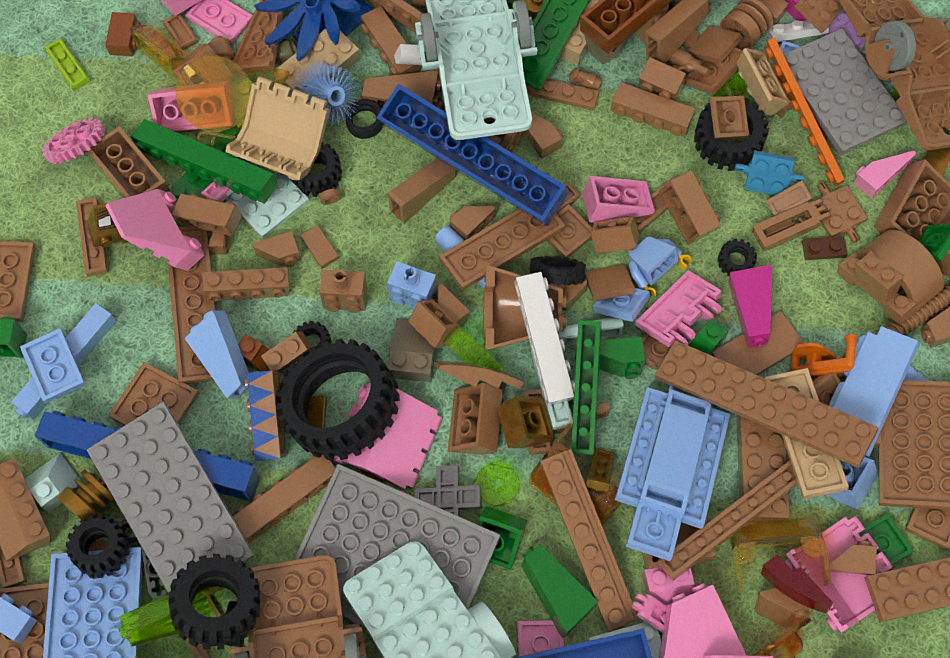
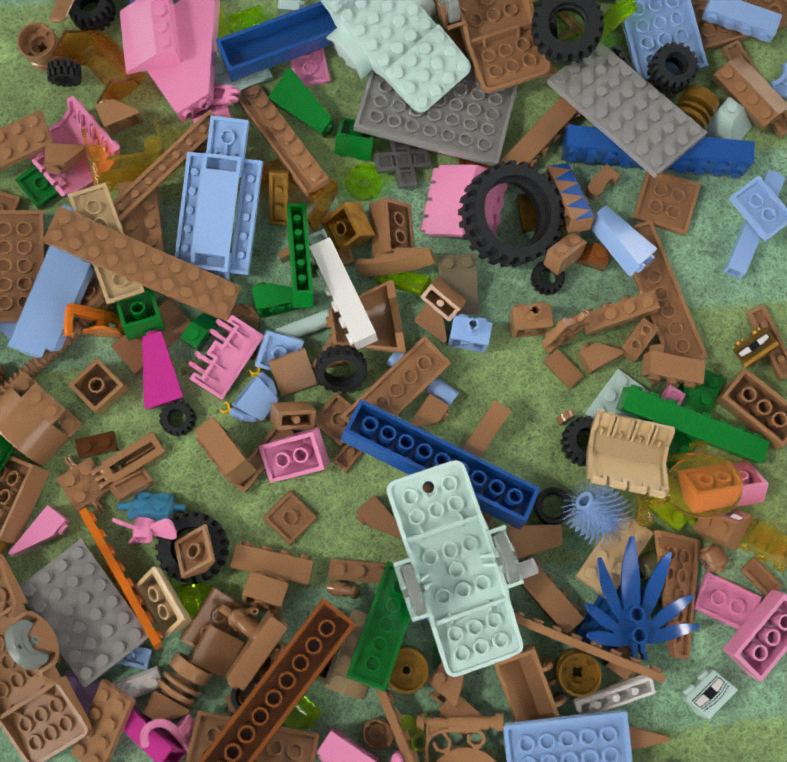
camera: 165 degrees right, 10 degrees up
(149, 223) = (722, 334): bright pink wedge -> none
(222, 437) = (600, 181): none -> medium nougat leg
(234, 255) = (638, 339): none -> medium nougat brick
(307, 269) = (565, 331): none -> medium nougat plate
(629, 151) = (289, 517): none -> medium nougat tile
(771, 358) = (140, 315): none -> green slope
(781, 143) = (146, 528): none -> bright pink piece
(796, 585) = (110, 115): dark red slope -> none
(820, 298) = (98, 387): none -> medium nougat brick

